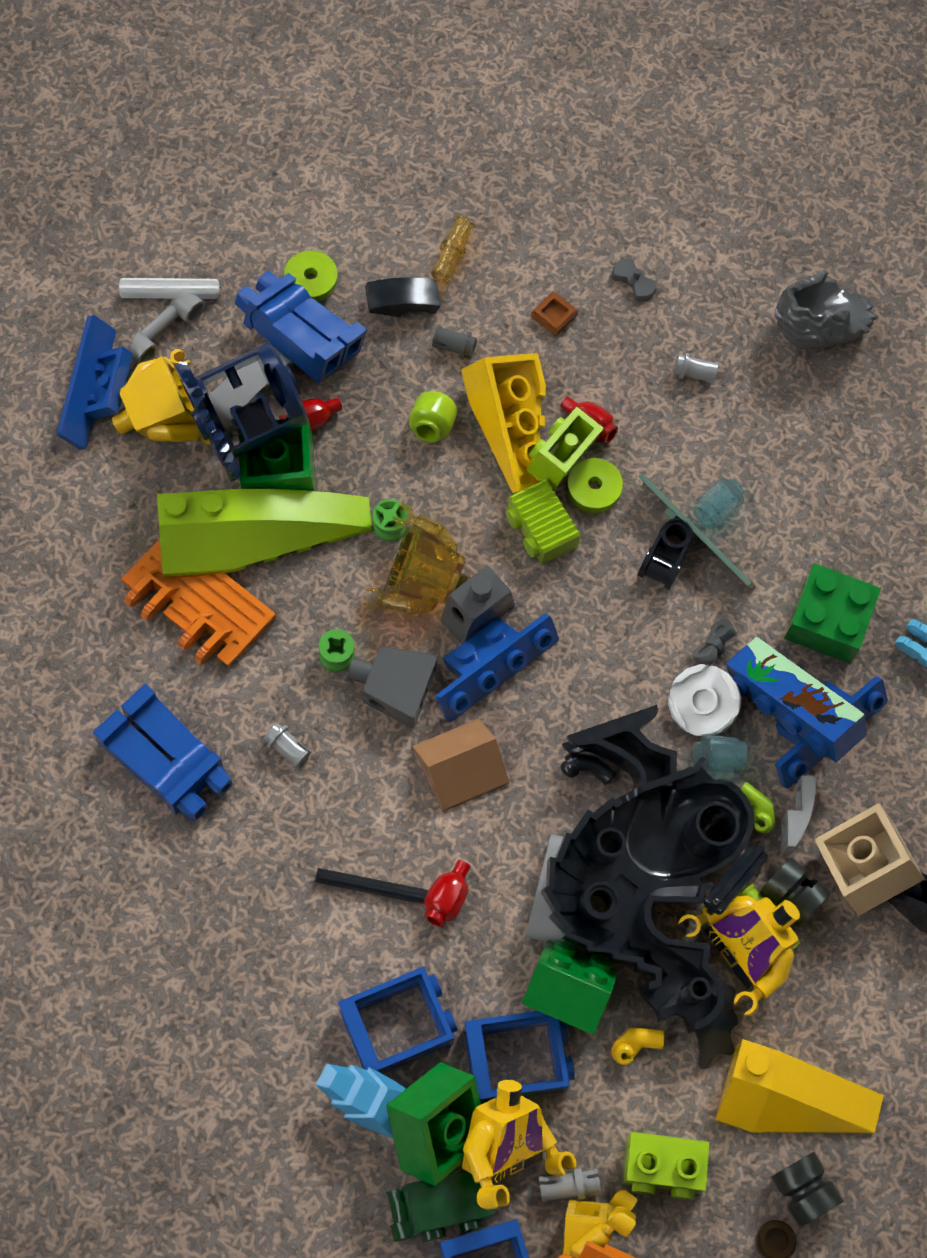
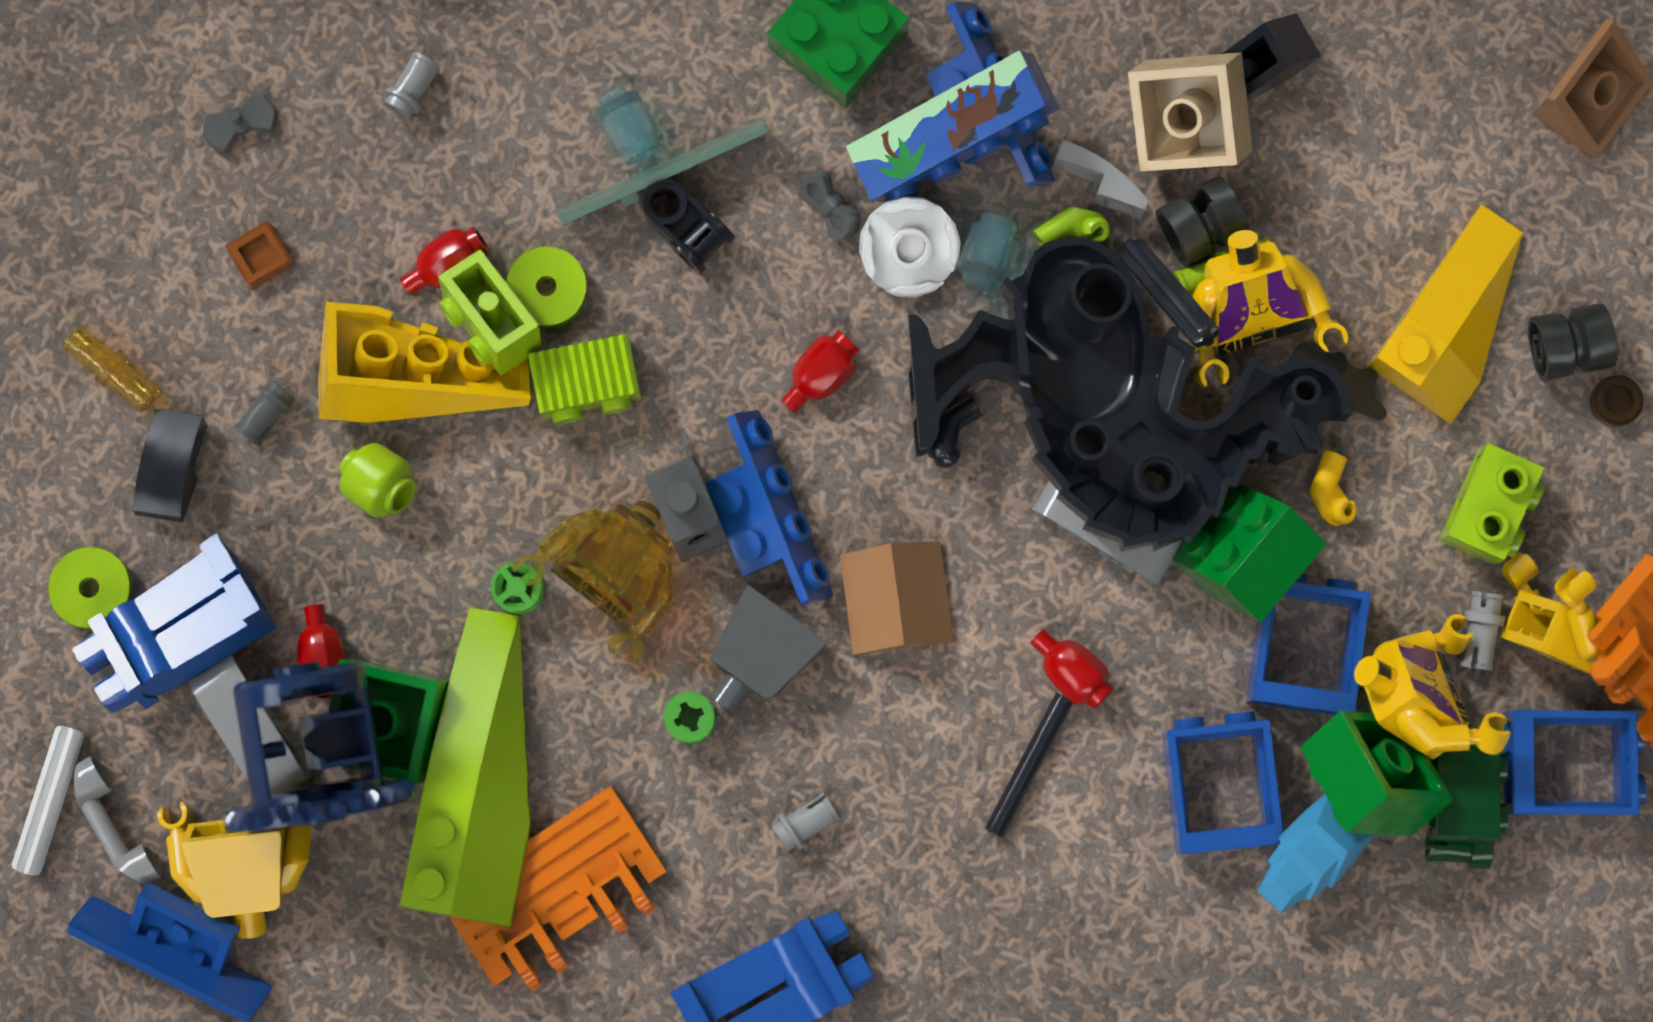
camera: 65 degrees left, 15 degrees up
(600, 670) = (821, 370): none -> red plant

